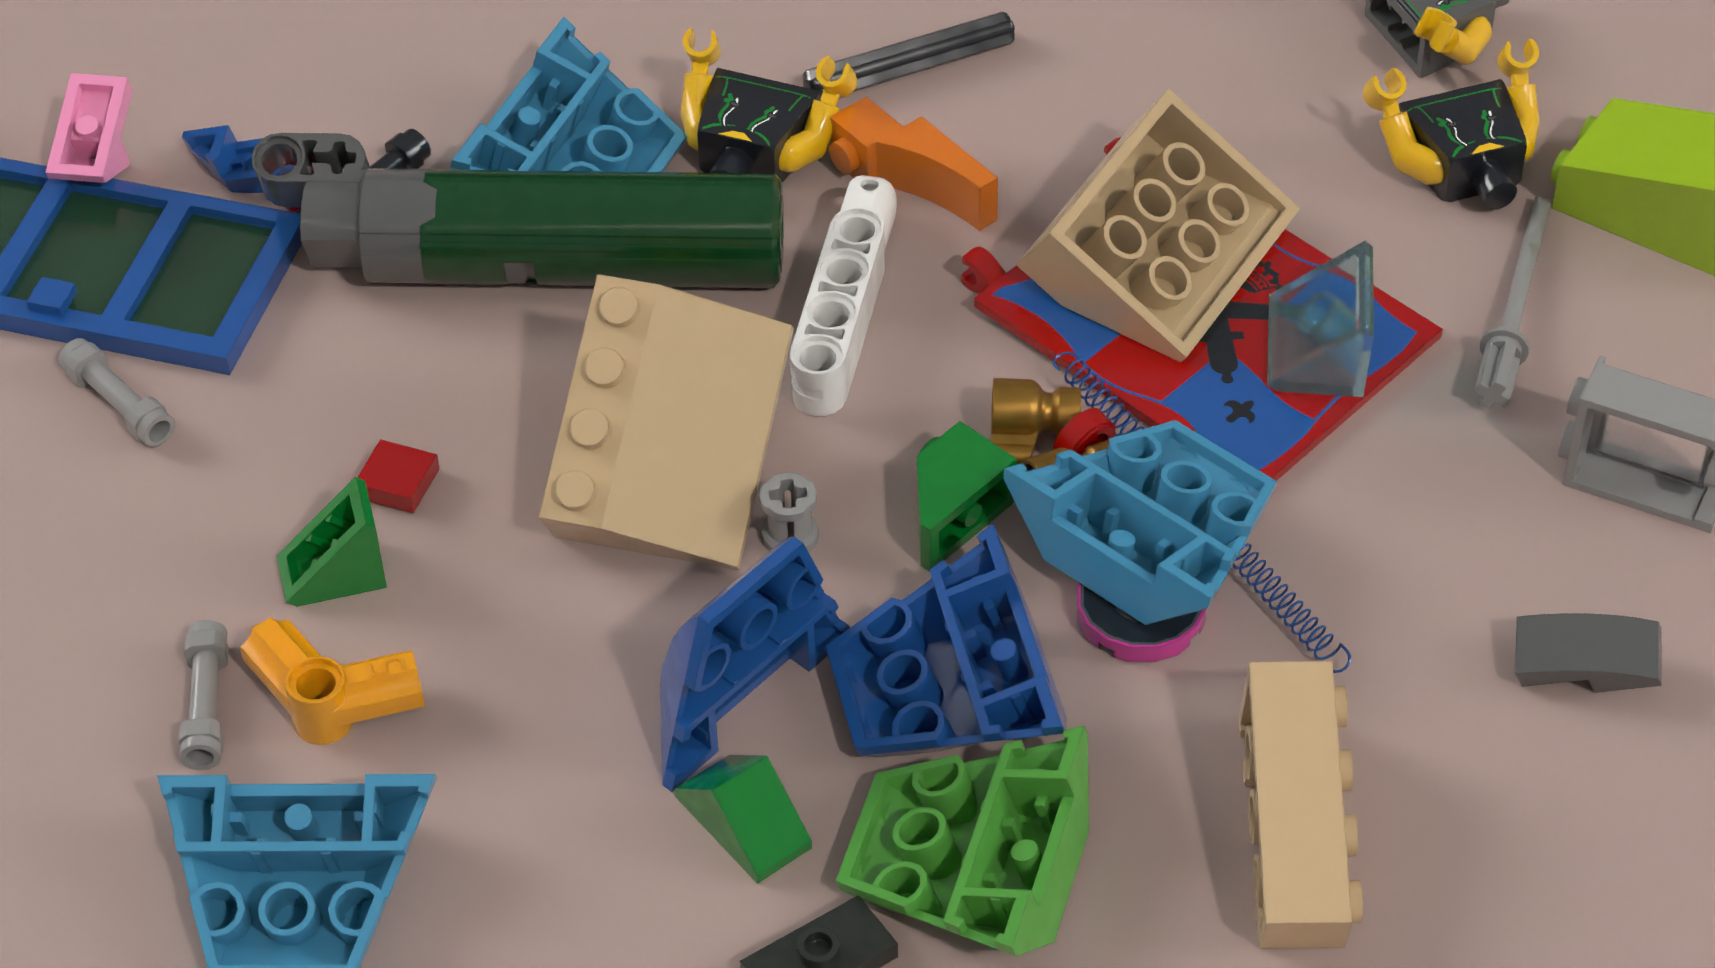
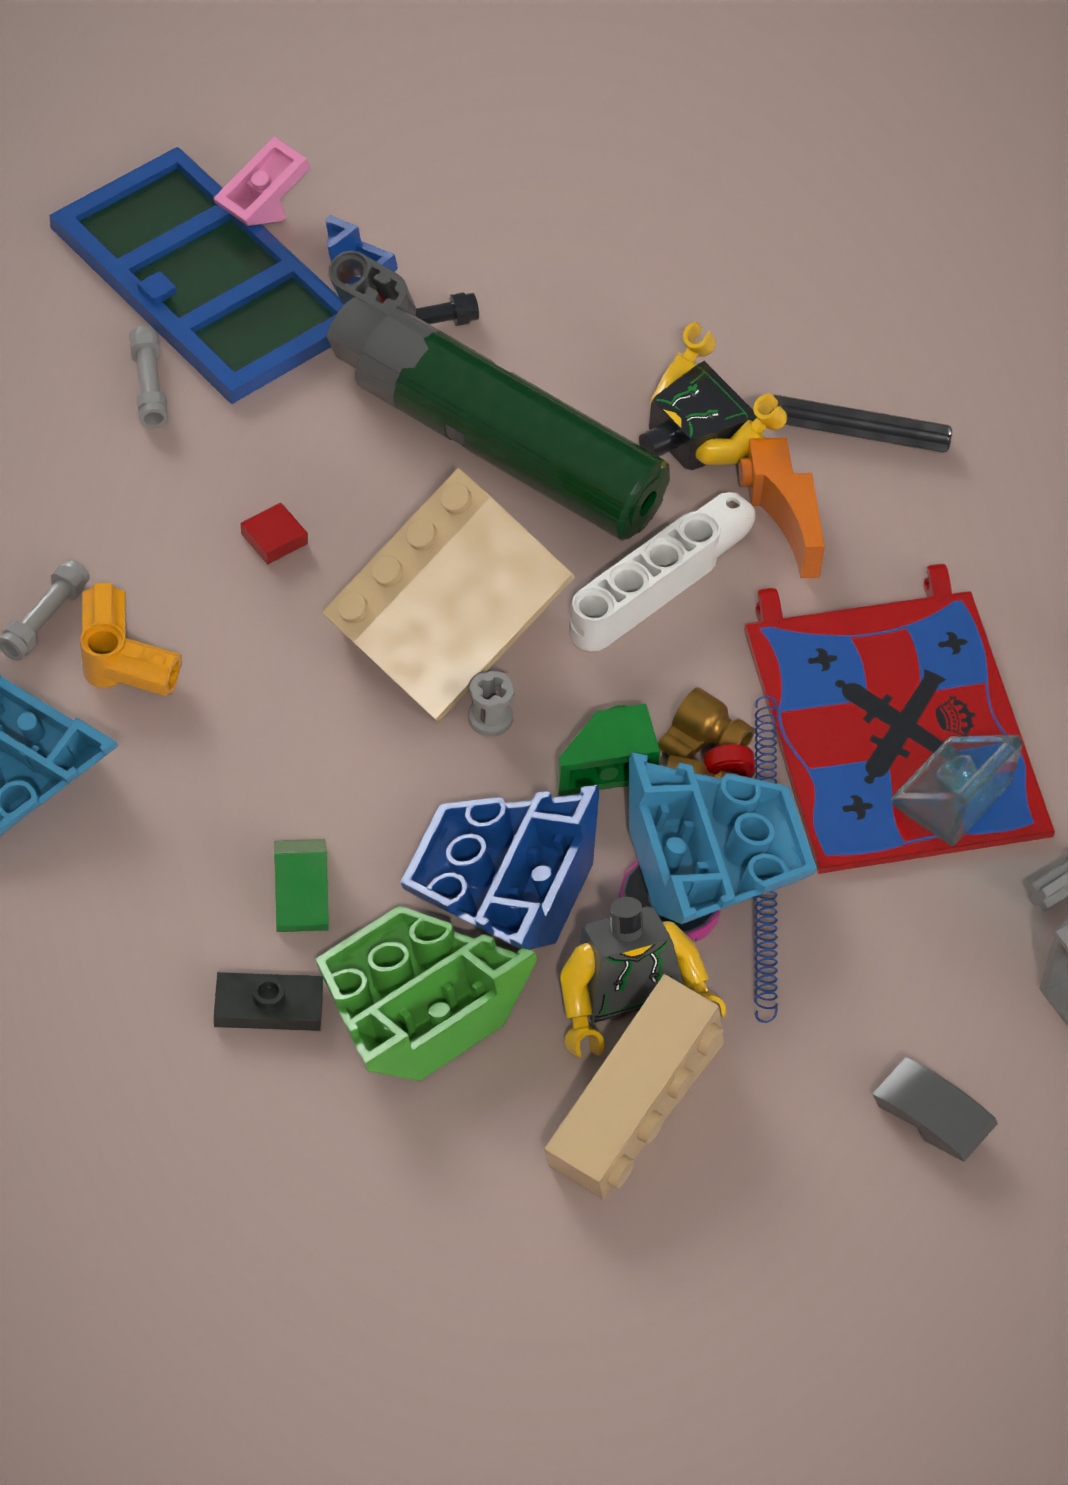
camera: 30 degrees right, 5 degrees up
(334, 551) = (193, 563): green slope -> none
(572, 118) = (576, 349): dark azure wedge -> none
(735, 645) = (370, 770): blue wedge -> none
(1161, 231) = (906, 648): tan slope -> none
(1173, 694) = (620, 967): none -> torso

